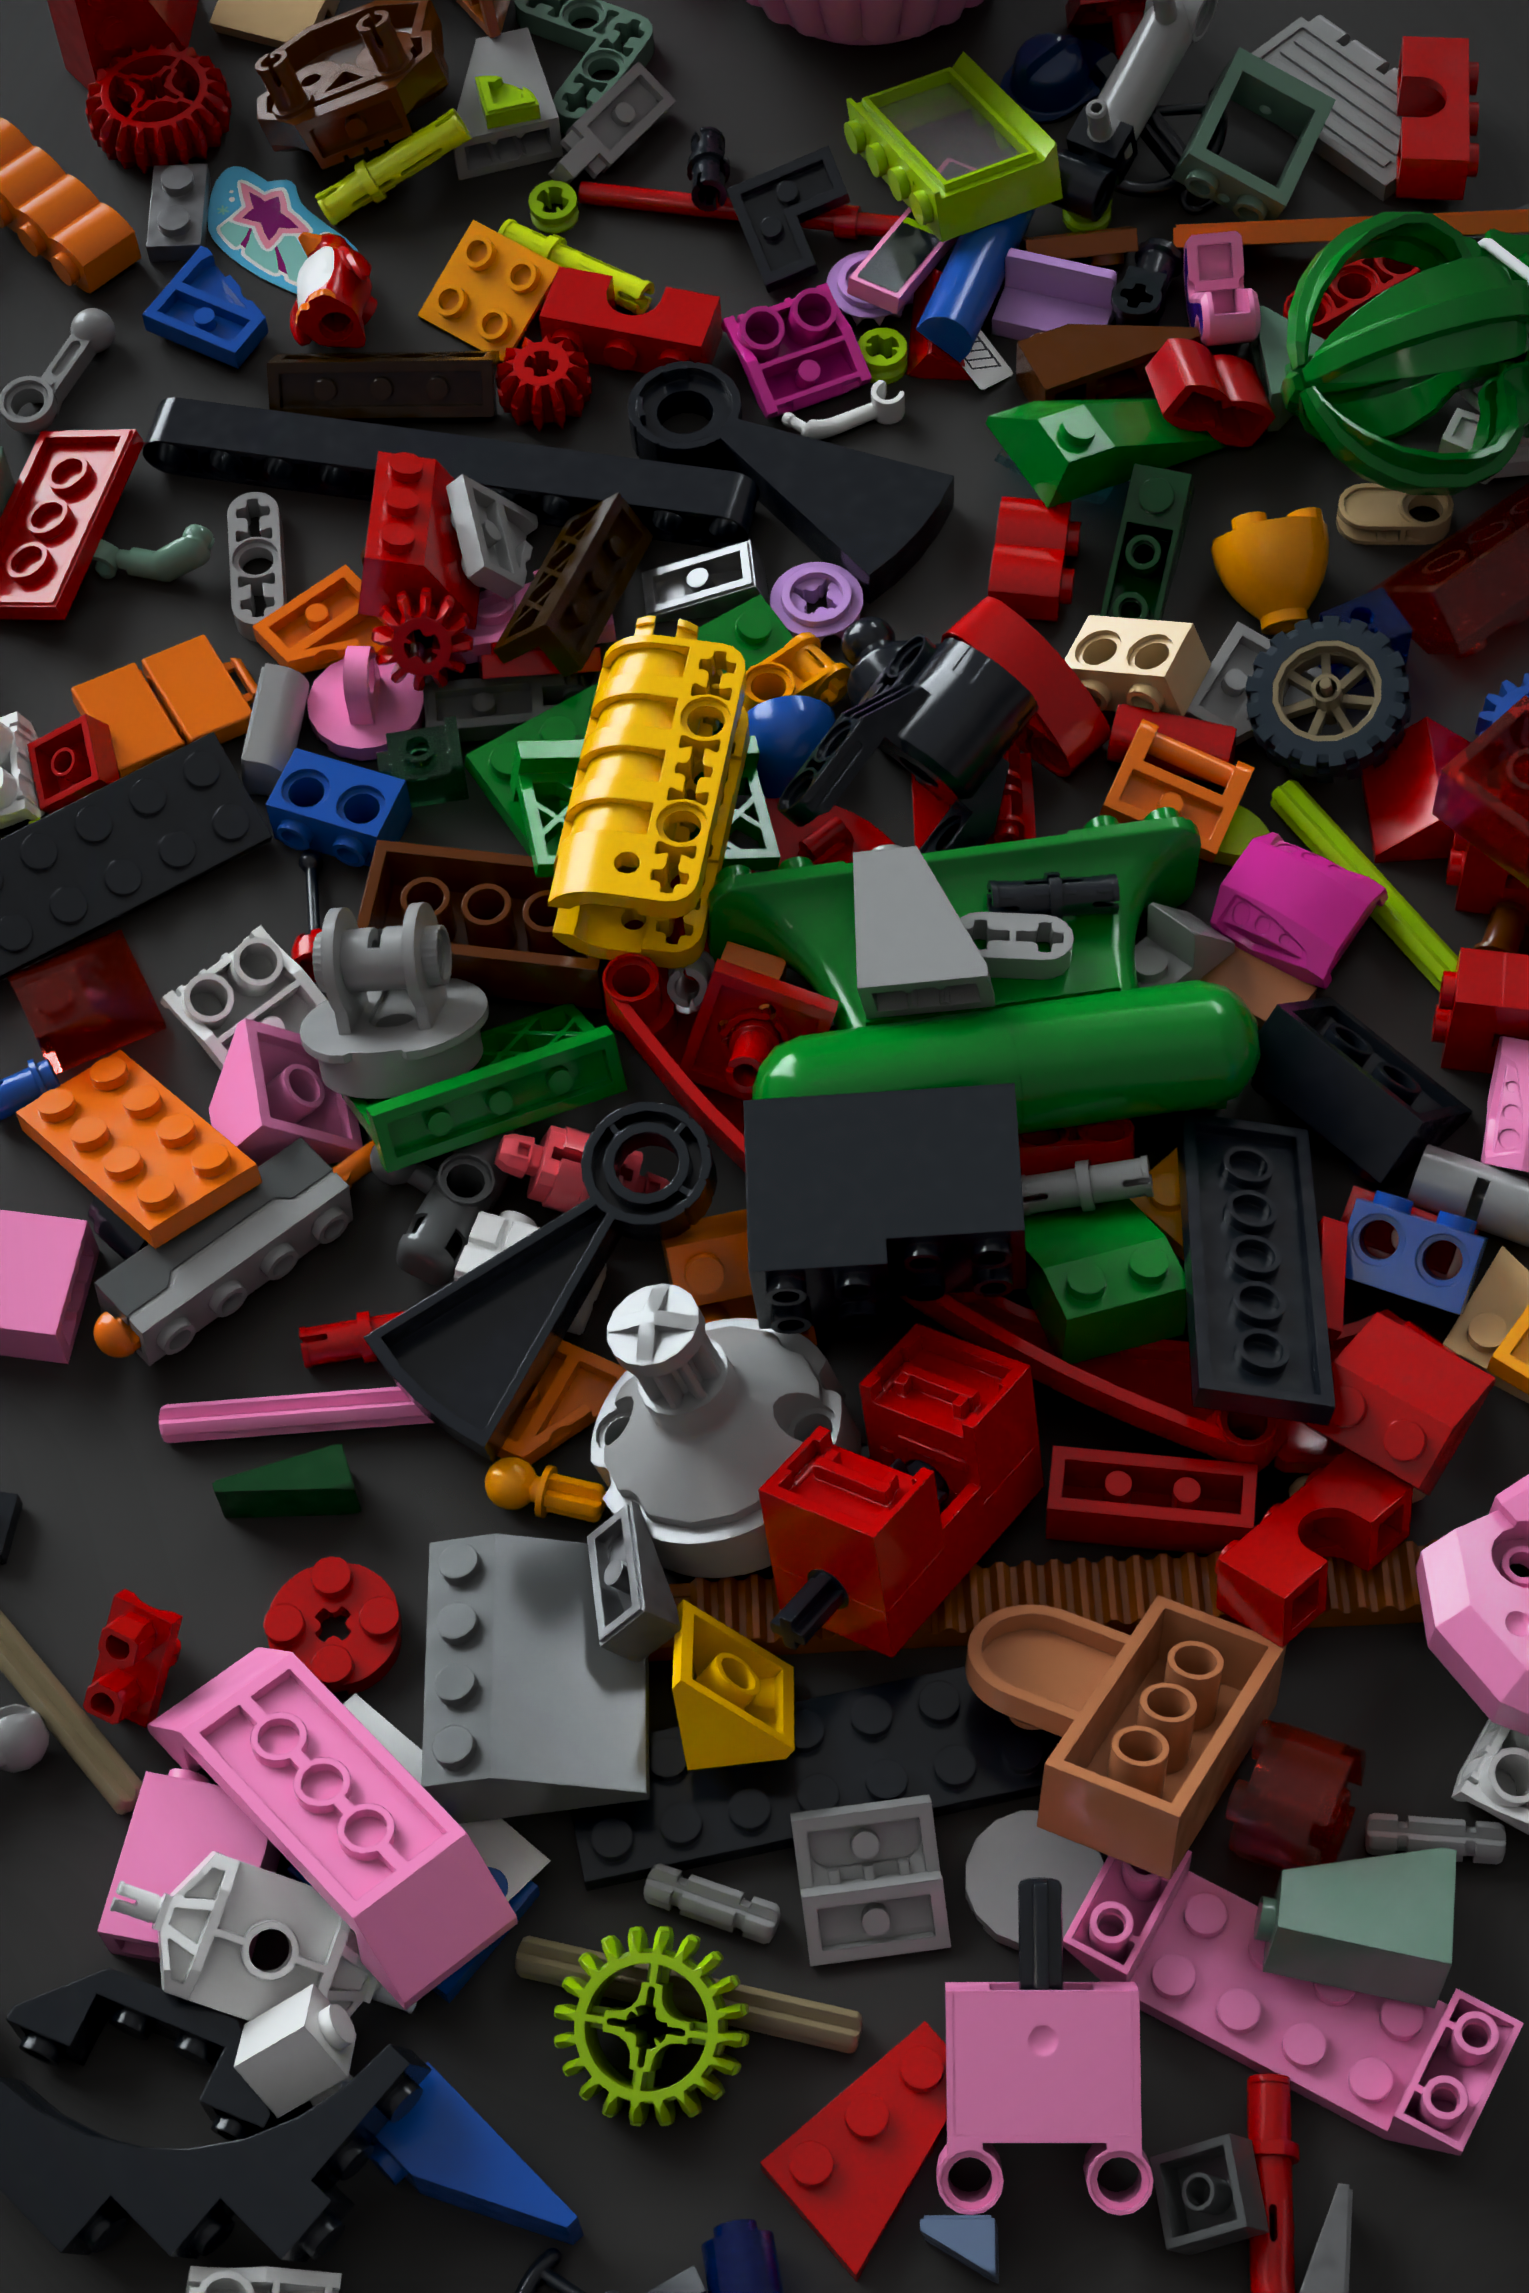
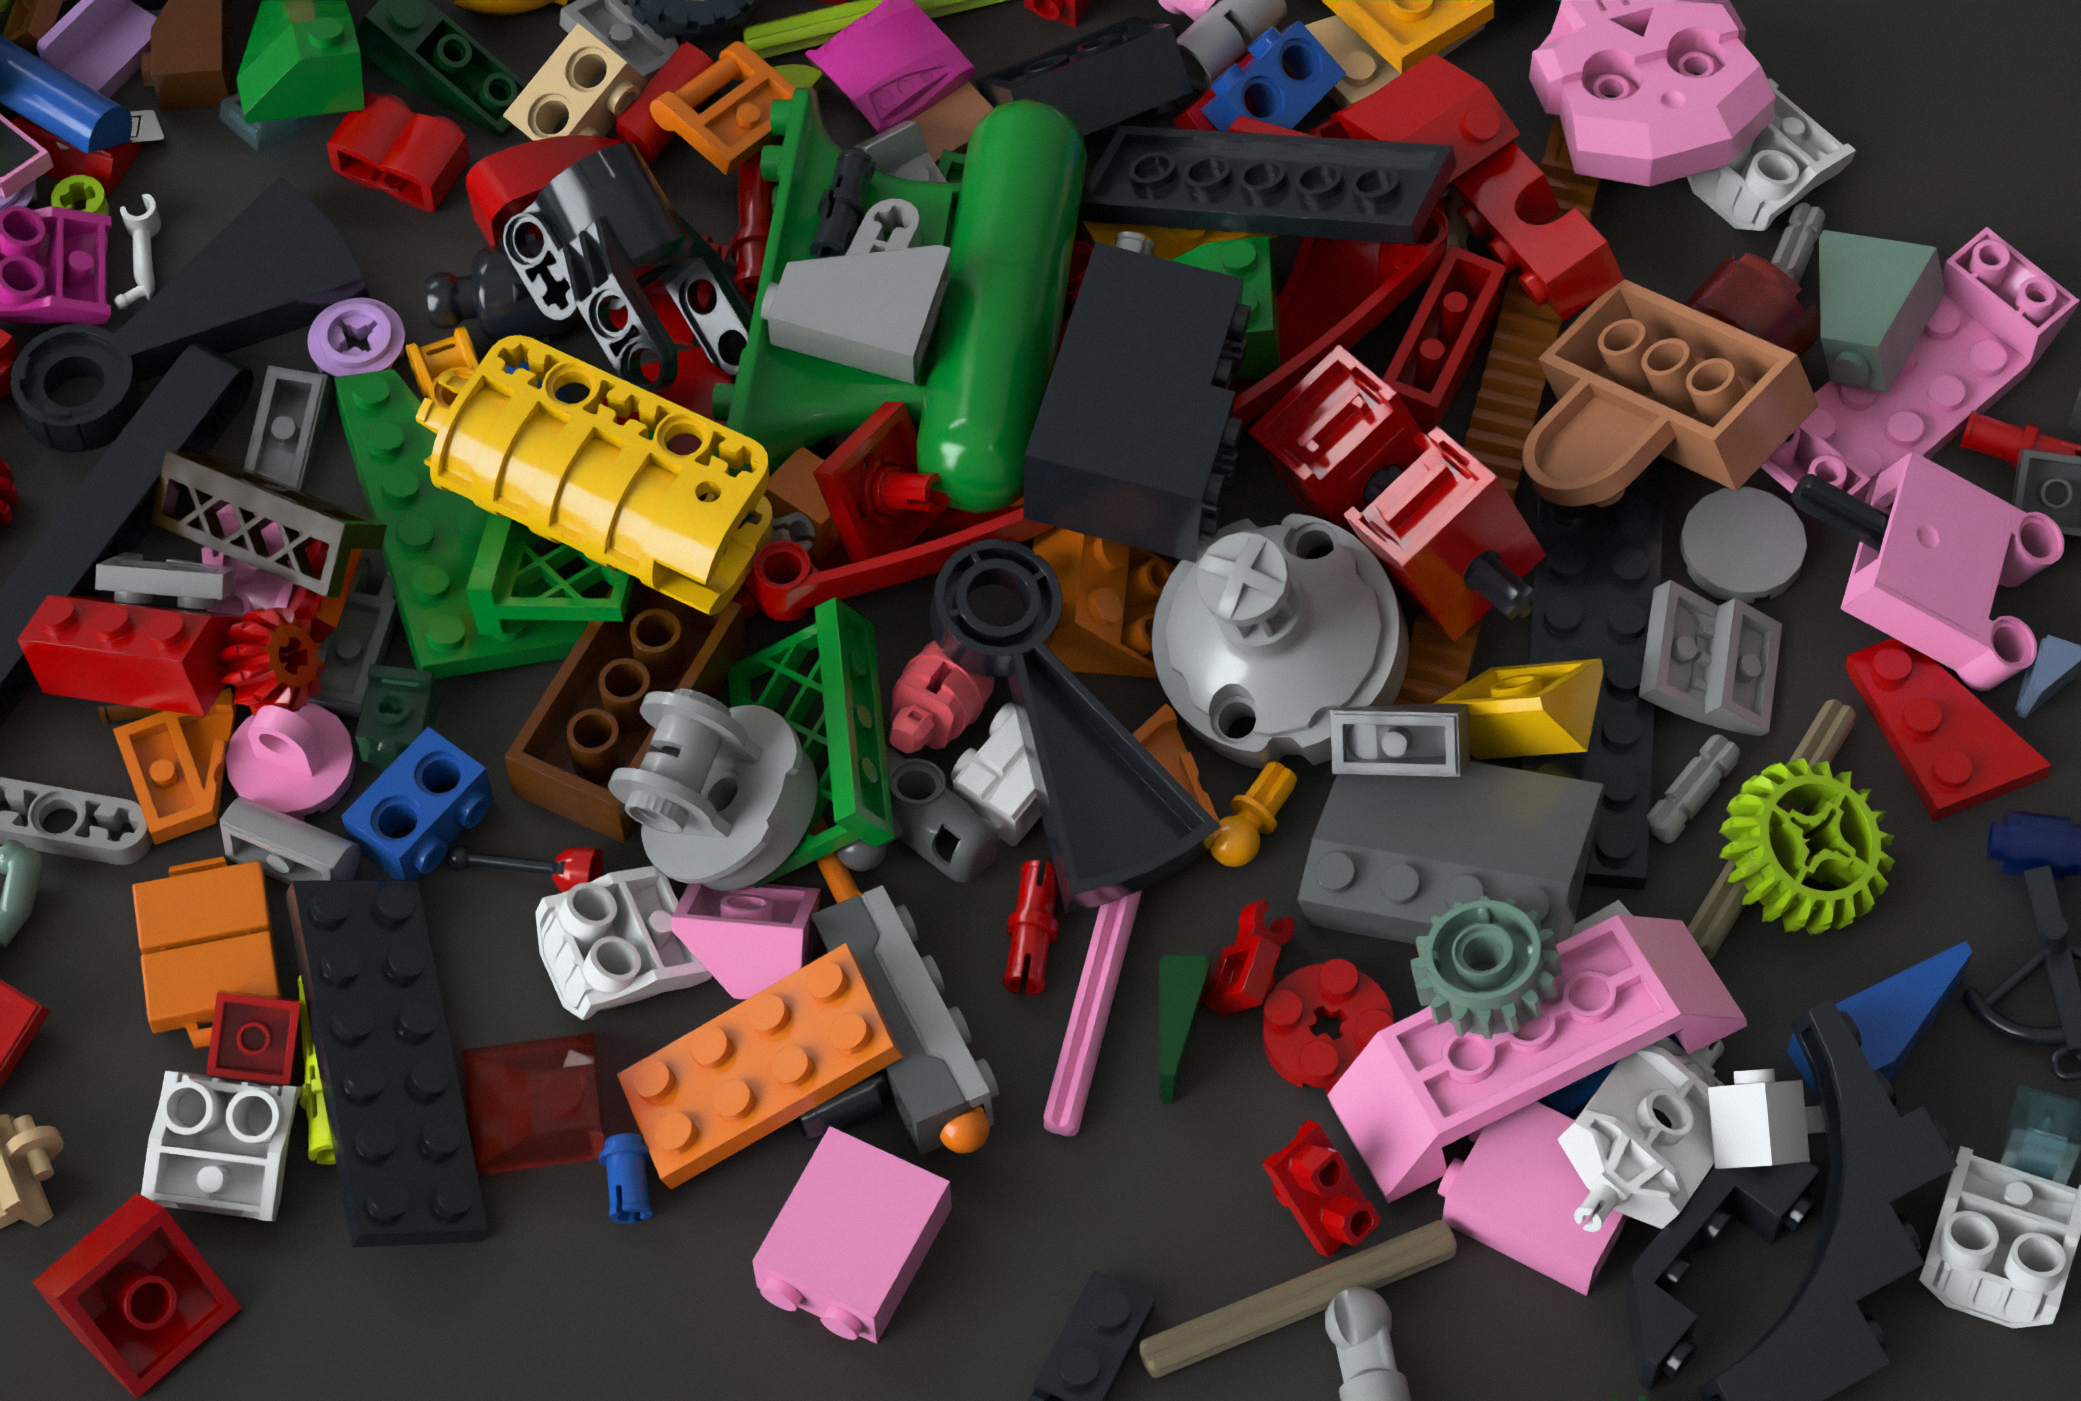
camera: 75 degrees left, 0 degrees up
(365, 1532) = (1246, 968): none -> red plate
(365, 1750) = (1492, 998): none -> sand green gear

